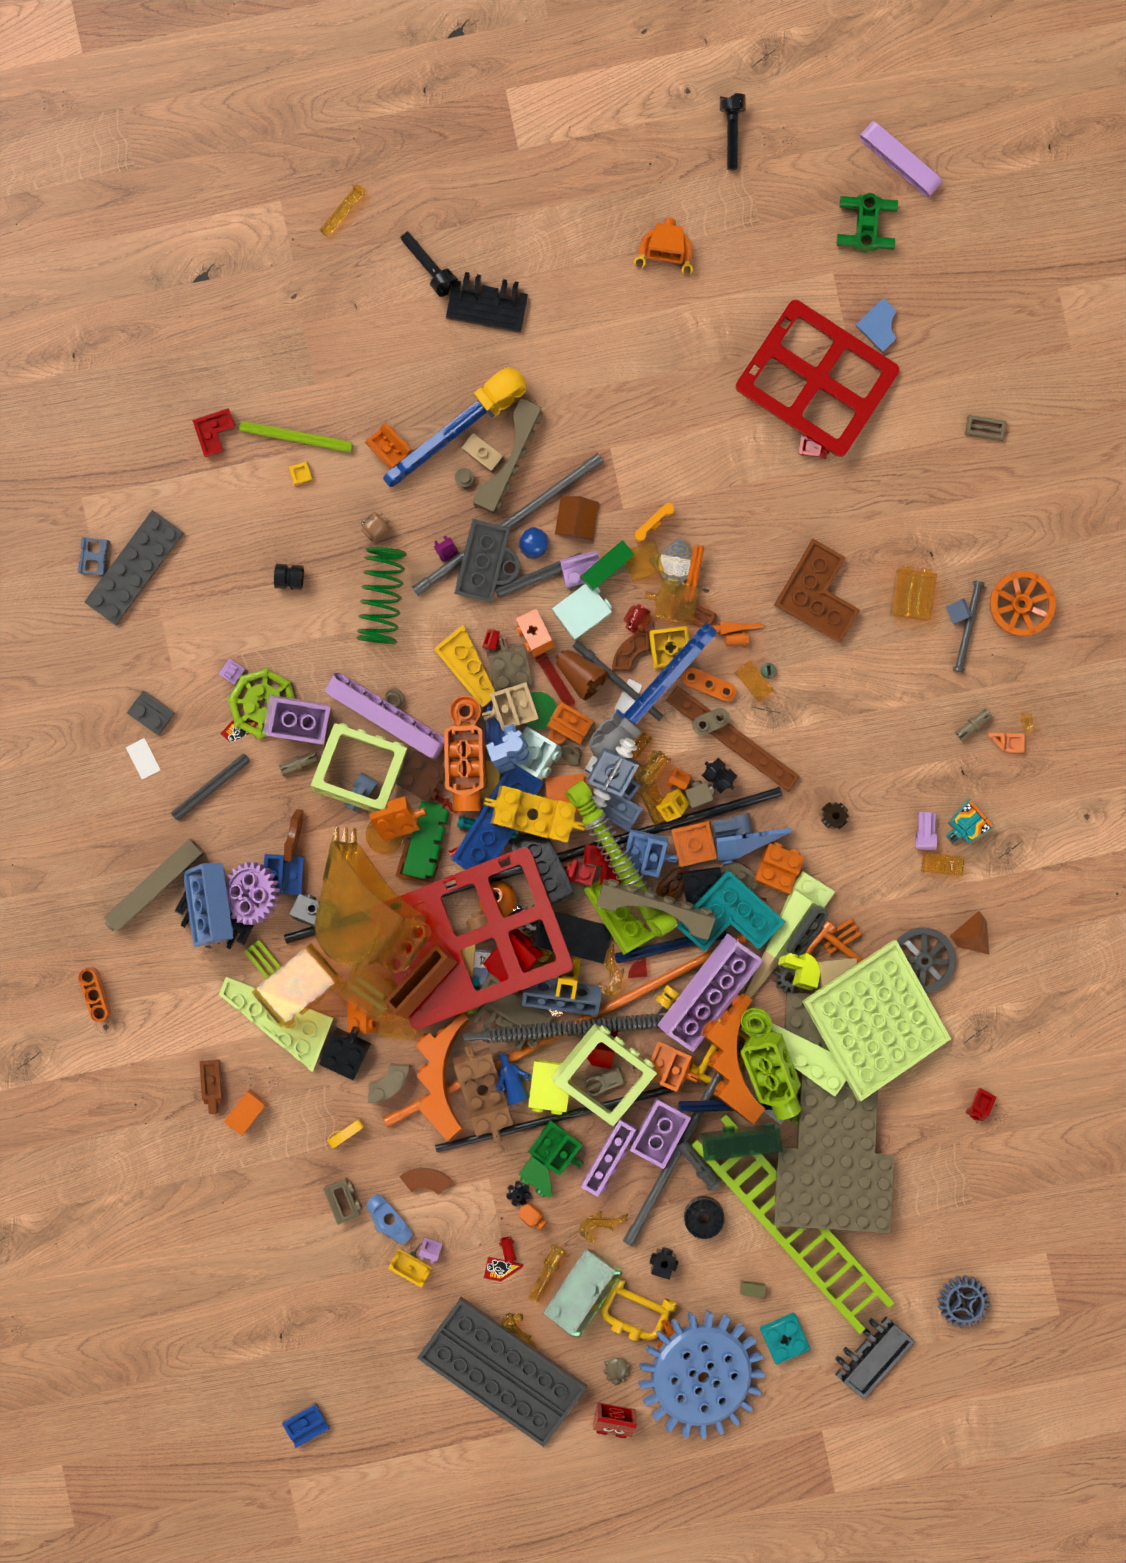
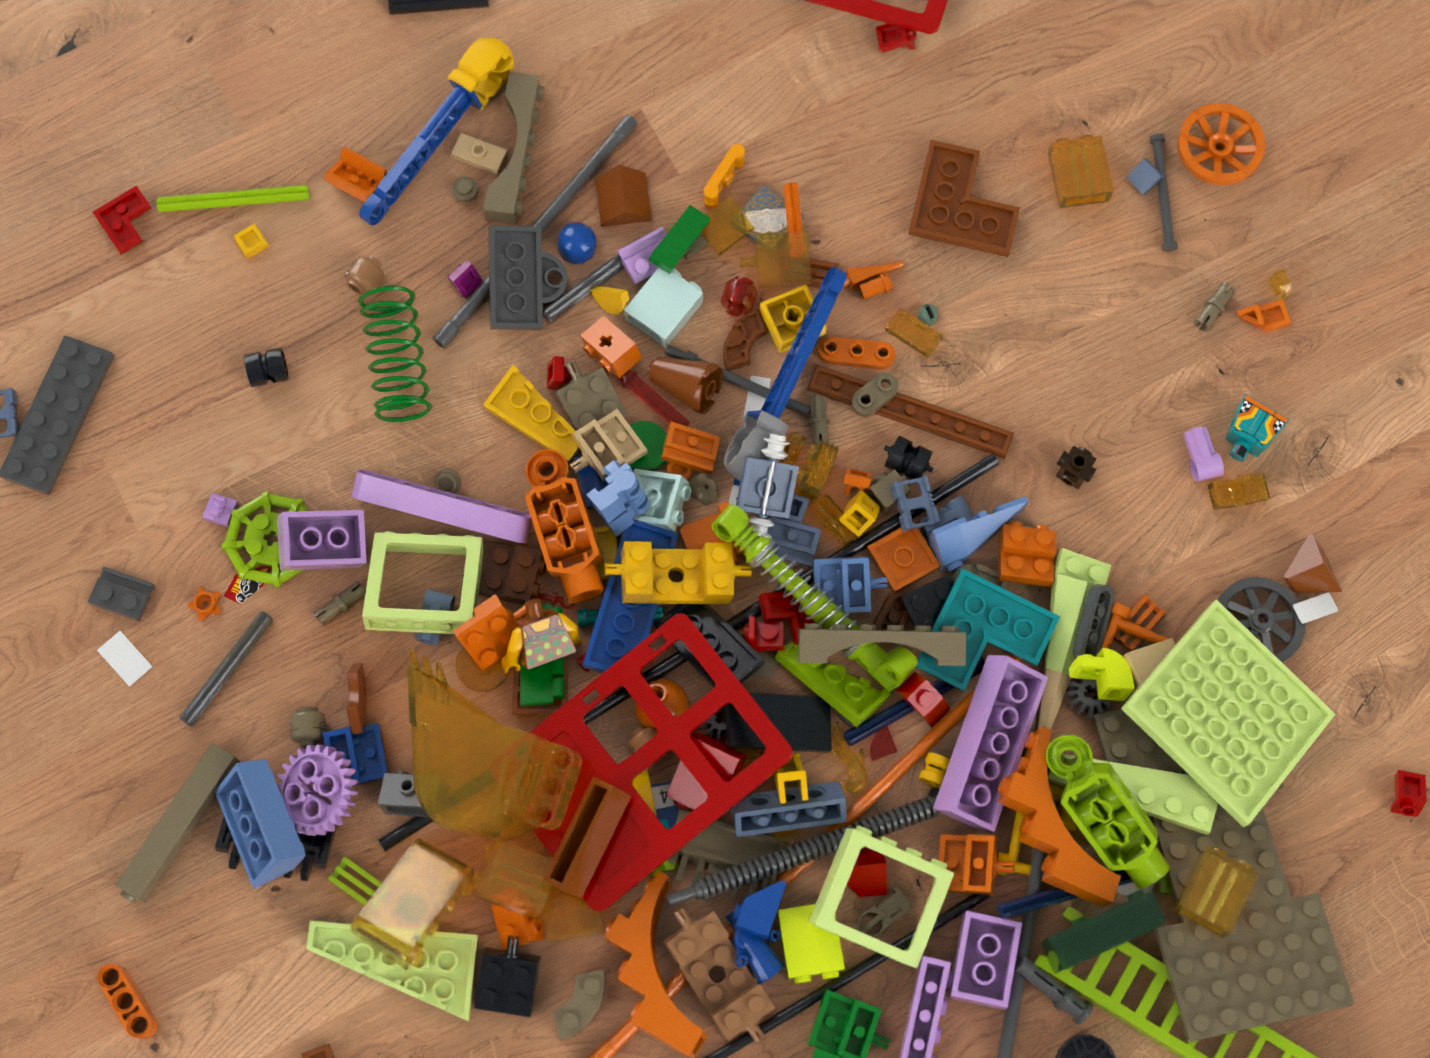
camera: 20 degrees left, 15 degrees down
(201, 736) = (201, 597): none -> orange plate
(255, 844) = (307, 726): none -> dark tan head
(427, 834) = (540, 638): none -> torso
(521, 1060) = (759, 910): none -> blue slope
(546, 597) = (611, 299): none -> yellow tile
(666, 728) = (818, 419): none -> dark tan axle
(674, 948) = (923, 698): none -> red slope
(705, 811) = (906, 505): none -> sand blue piece
(824, 1136) = (1216, 891): none -> clear yellow brick
(965, 961) = (1315, 608): none -> white sticker

